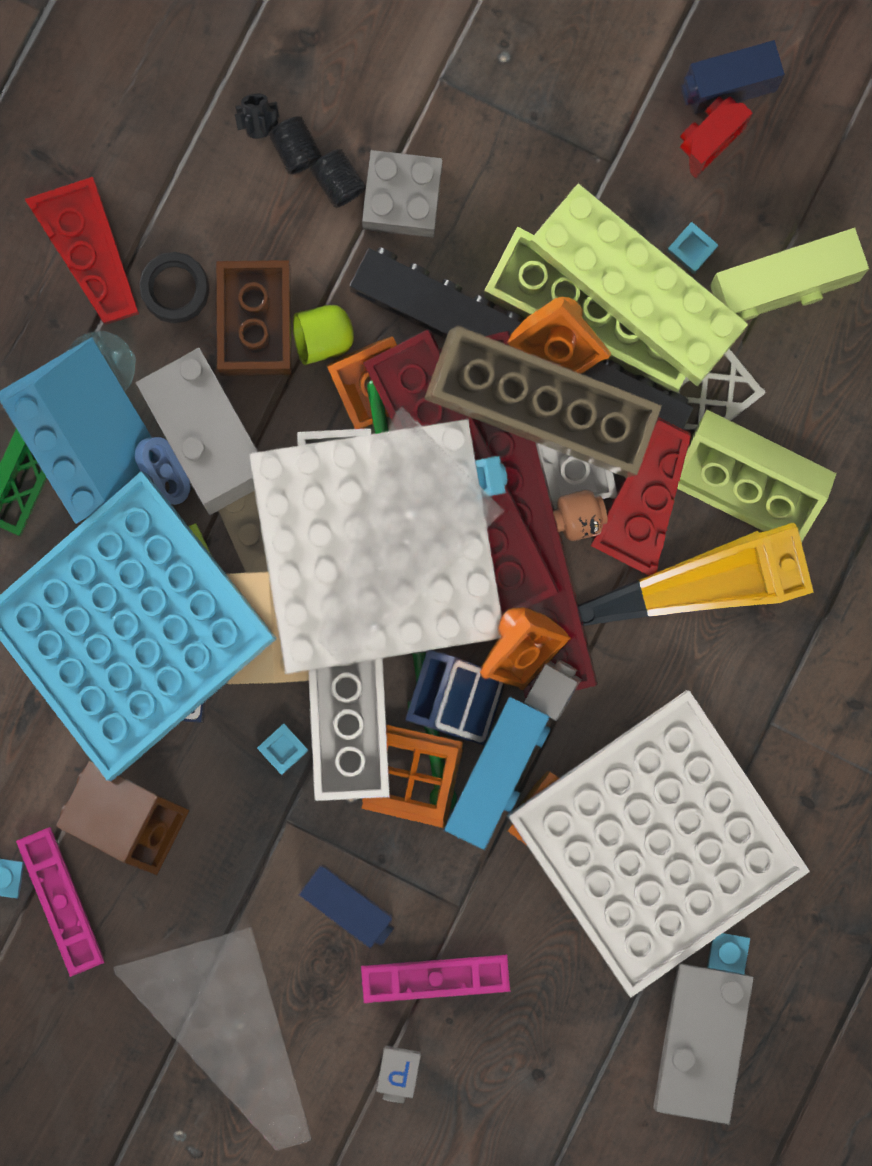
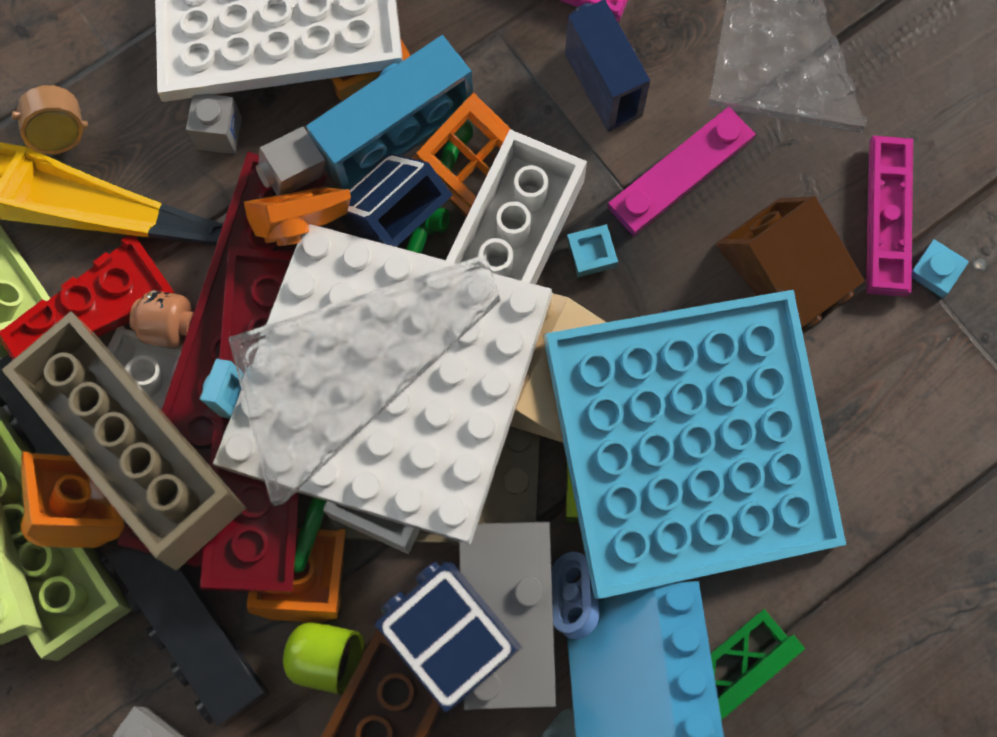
camera: 150 degrees left, 10 degrees down
(233, 387) = (446, 634): none -> dark blue brick
(245, 857) = (681, 171): none -> dark pink plate
(639, 698) = (214, 123): none -> light grey brick
(770, 631) = (49, 119): none -> piece

